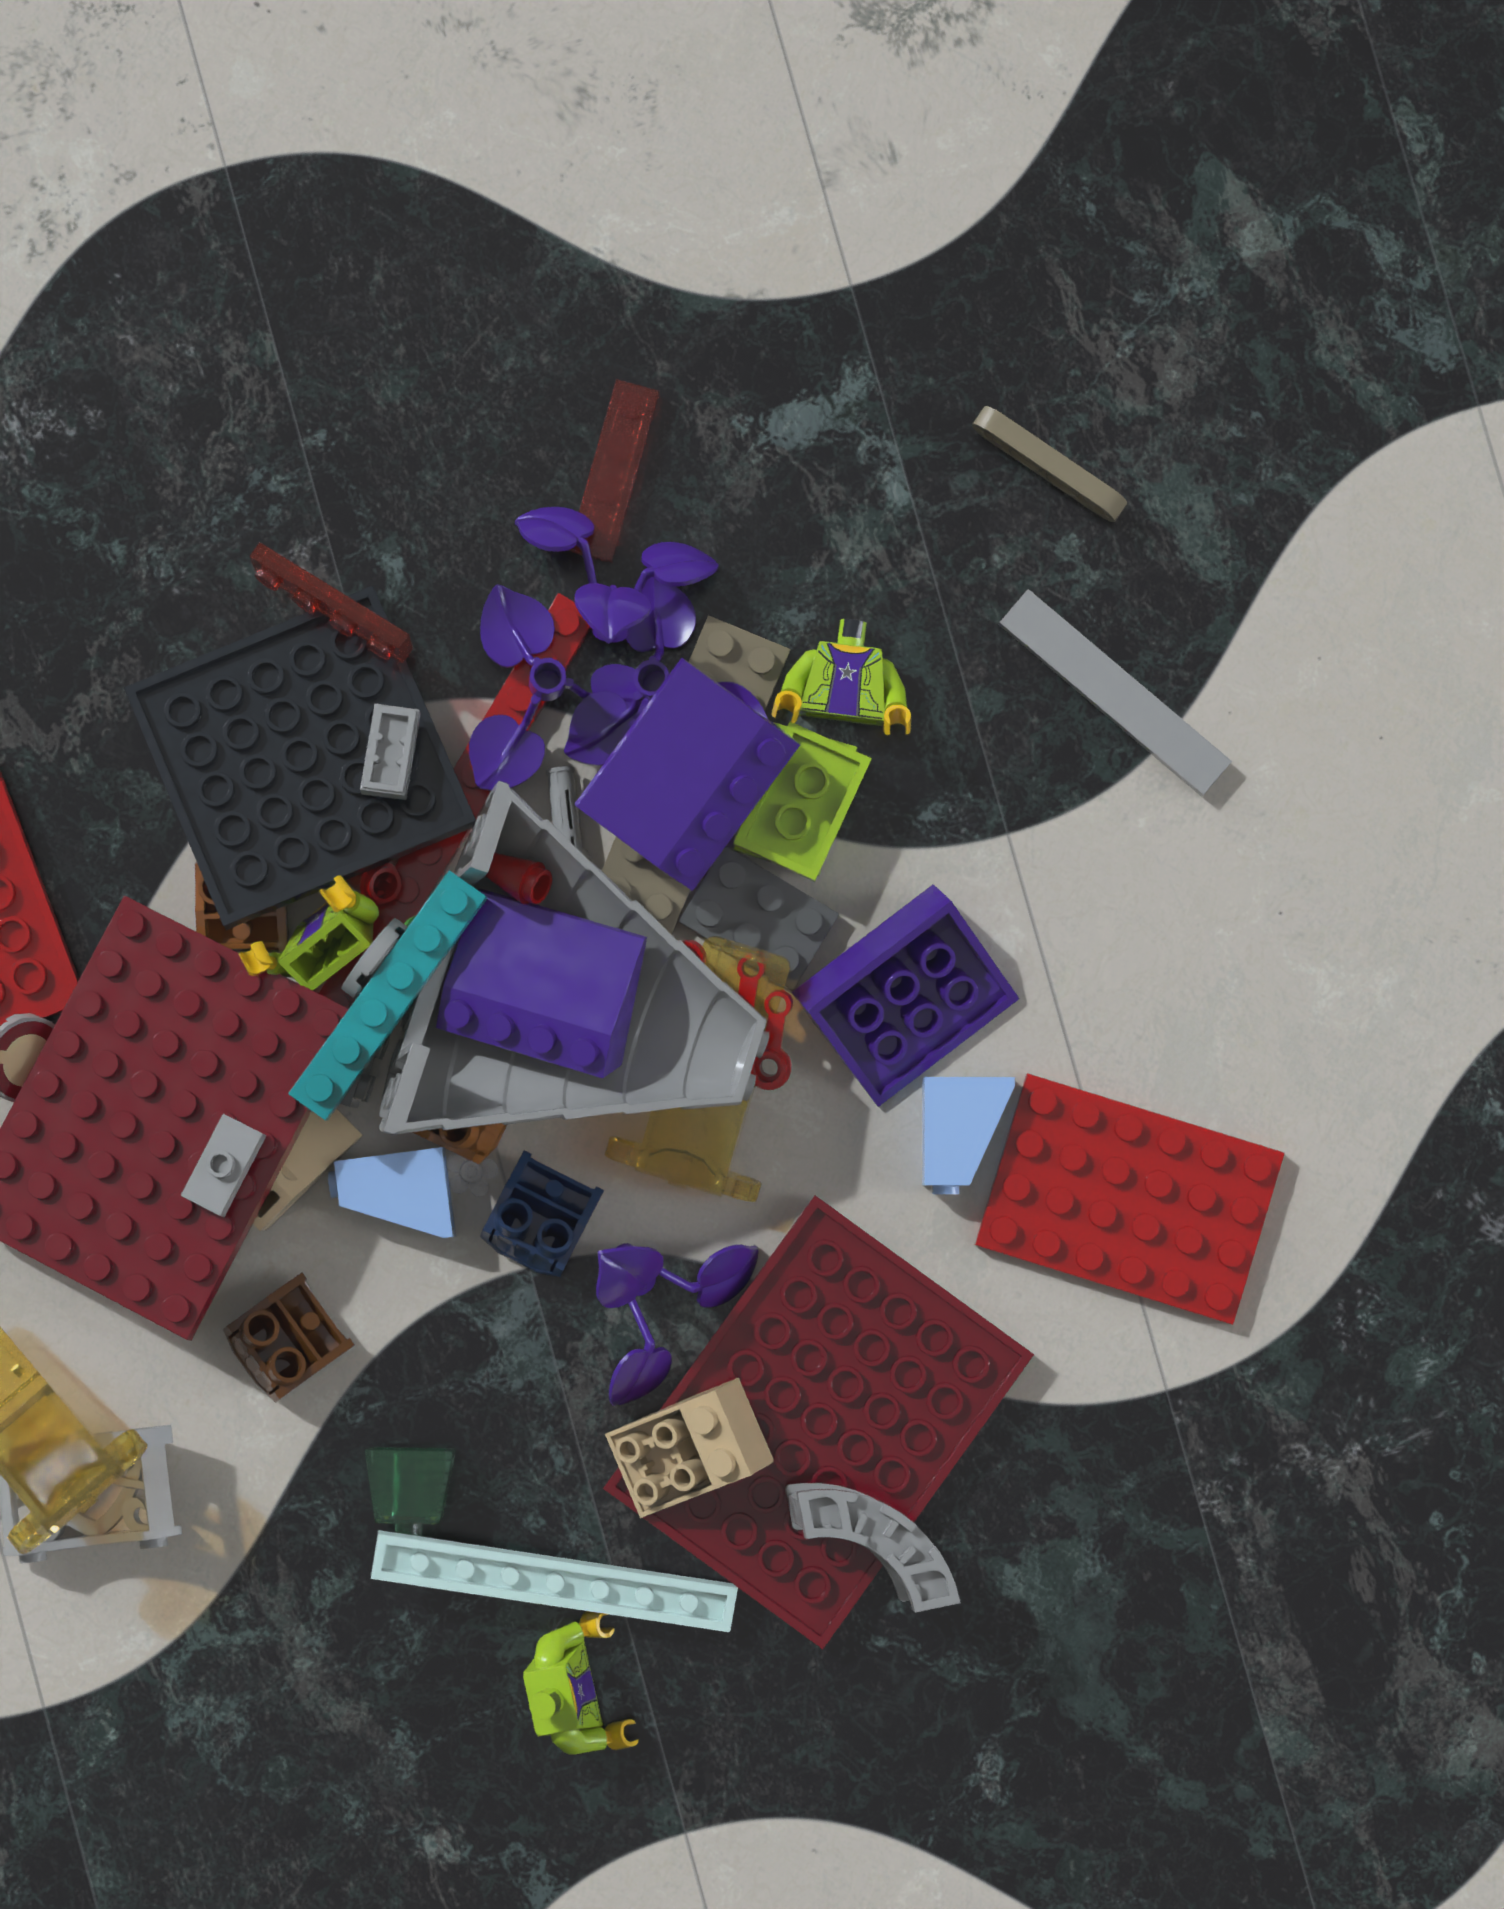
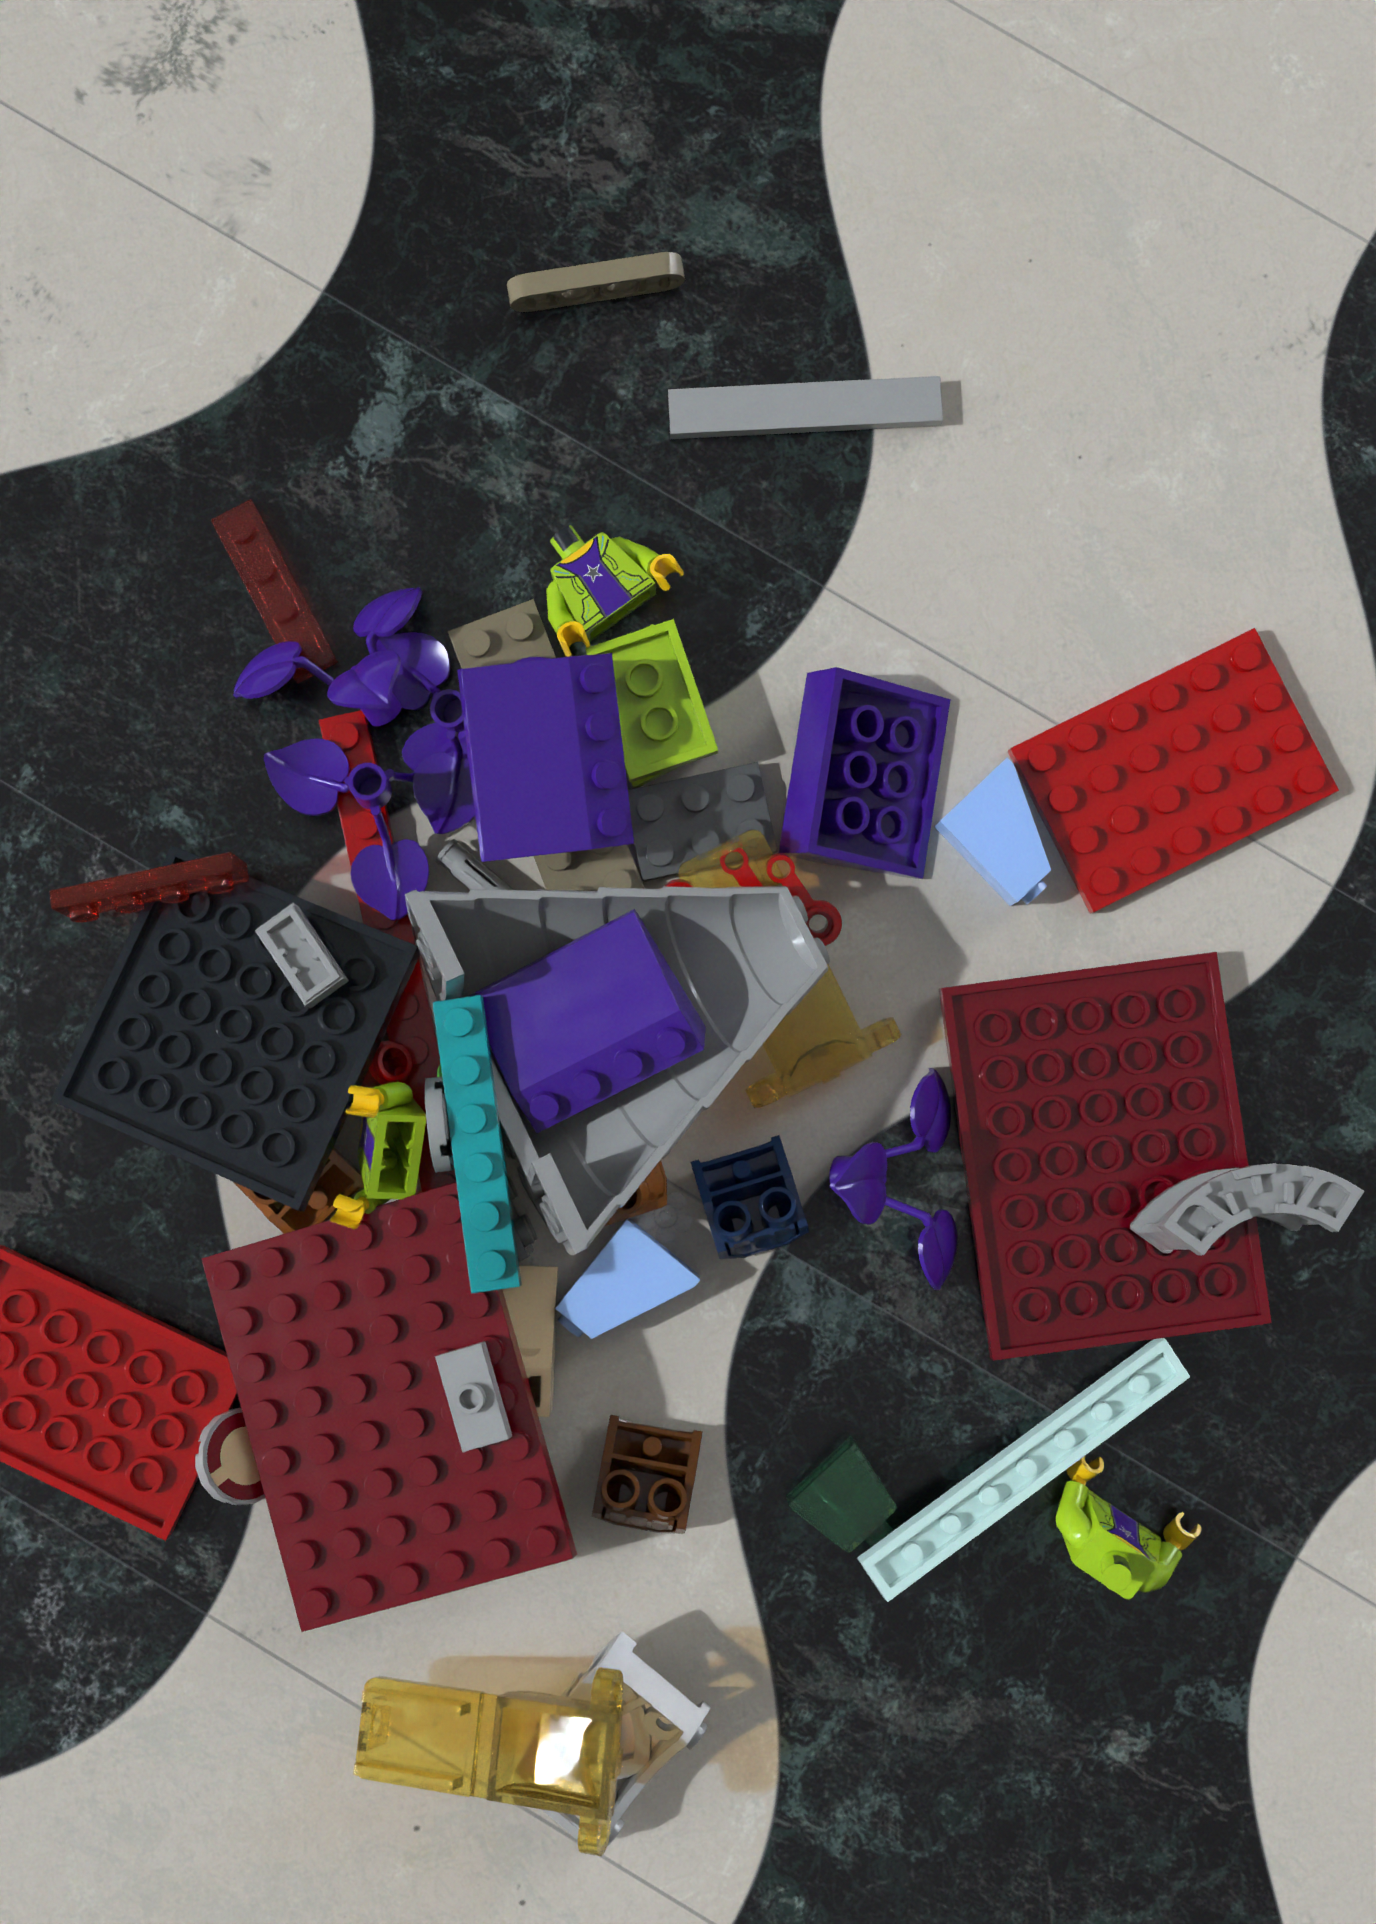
camera: 45 degrees left, 0 degrees up
(520, 877) = (493, 956): red cone -> none
(690, 1448) = (1032, 1267): tan slope -> none

